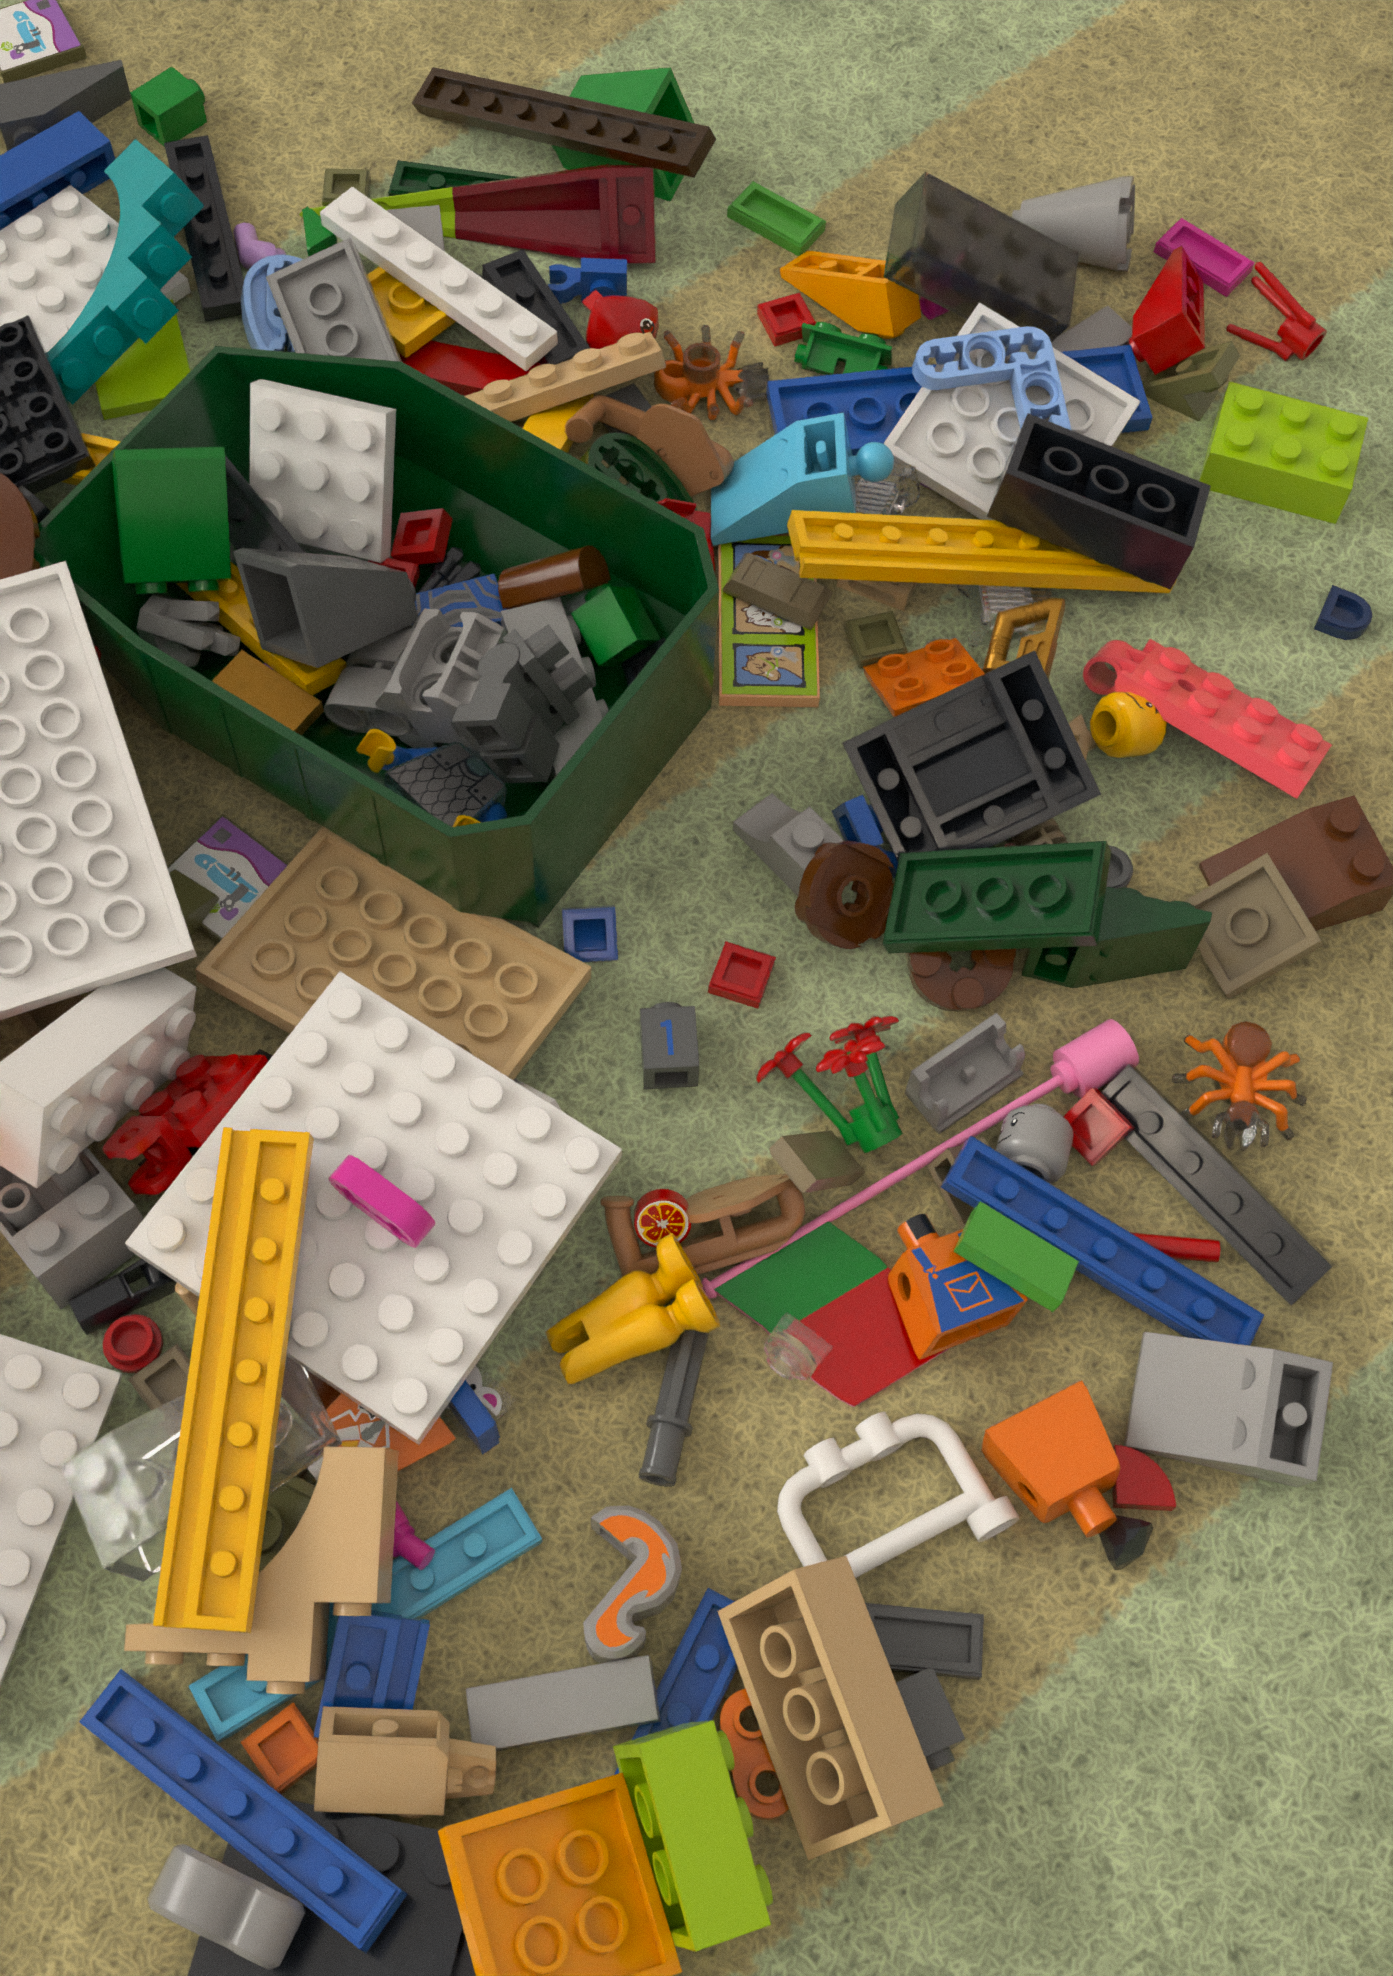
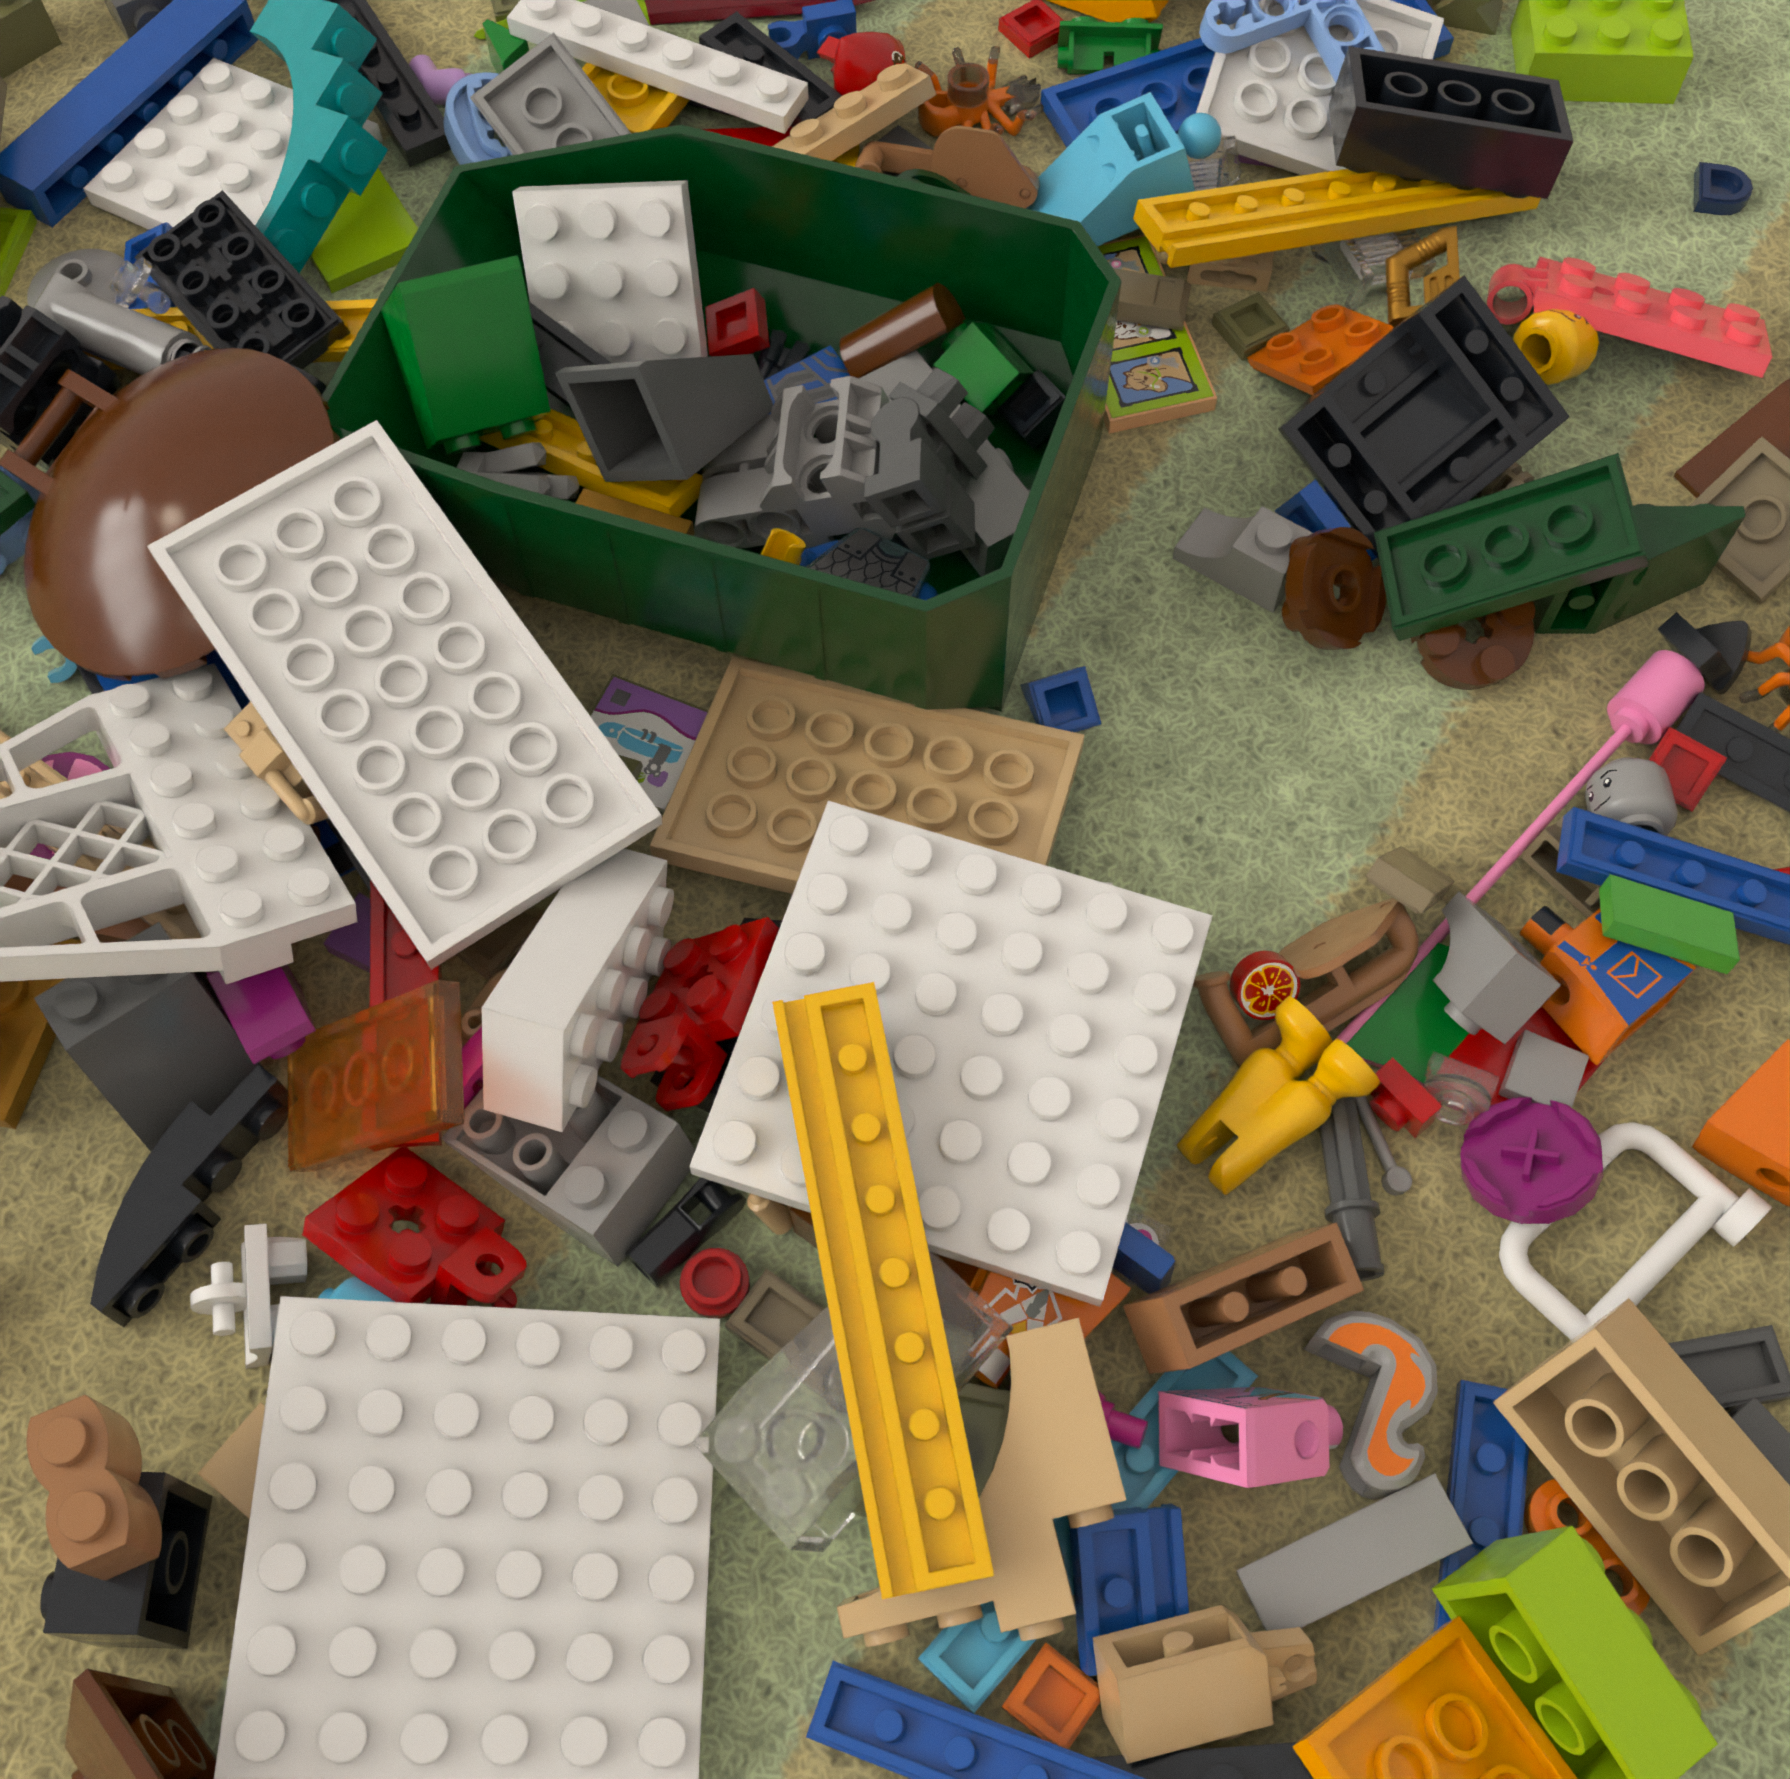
camera: 10 degrees left, 0 degrees up
(382, 1201) = (978, 1039): dark pink beam -> none
(508, 1581) = (1280, 1434): none -> bright pink torso
(542, 1471) = (1242, 1299): none -> medium nougat brick
(669, 1046) = (1198, 799): dark grey brick -> none
(720, 1409) = (1396, 1178): none -> light grey hinge
(741, 975) = (1242, 706): red tile -> none
(742, 1345) = (1403, 1100): none -> red plate
(829, 1424) = (1531, 1161): none -> magenta tile
(851, 1256) = (1489, 973): none -> light grey arch
(872, 1356) = (1543, 1071): none -> light grey tile
(873, 1120) = (1445, 822): plant -> none
(965, 1074) = (1524, 750): light grey hinge -> none
(1156, 1032) = (1715, 649): none -> black tile

